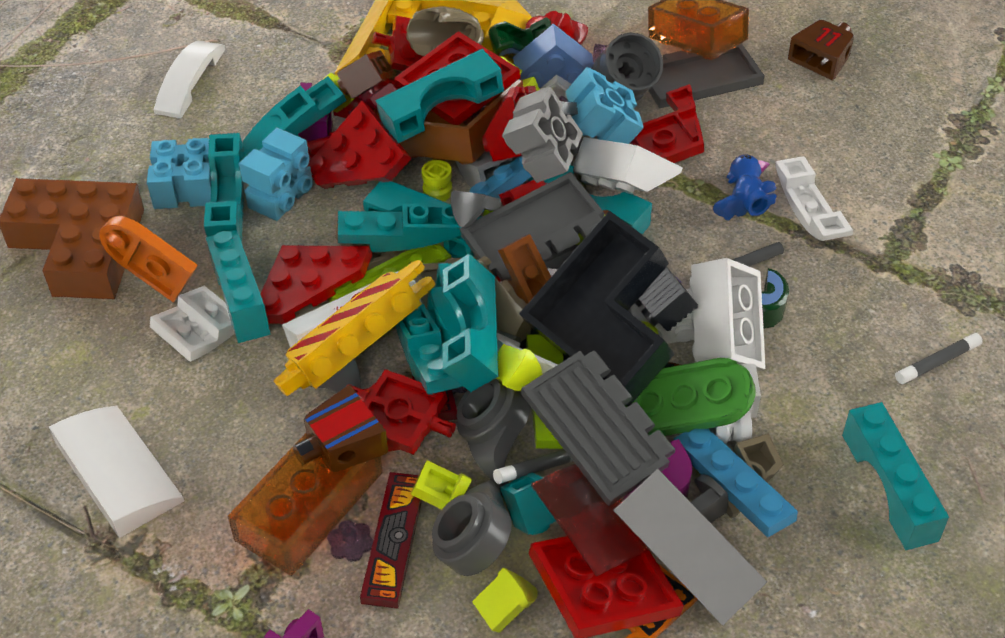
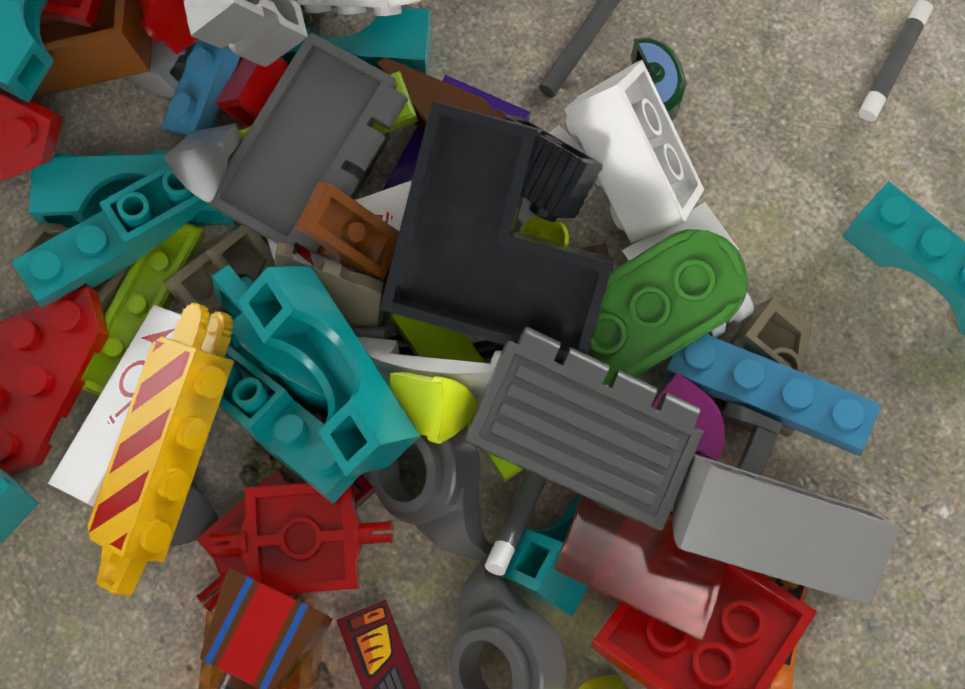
camera: 30 degrees left, 25 degrees up
(437, 179) = (107, 114): neon yellow wheel -> none
(439, 485) = (418, 605): neon yellow tile -> none

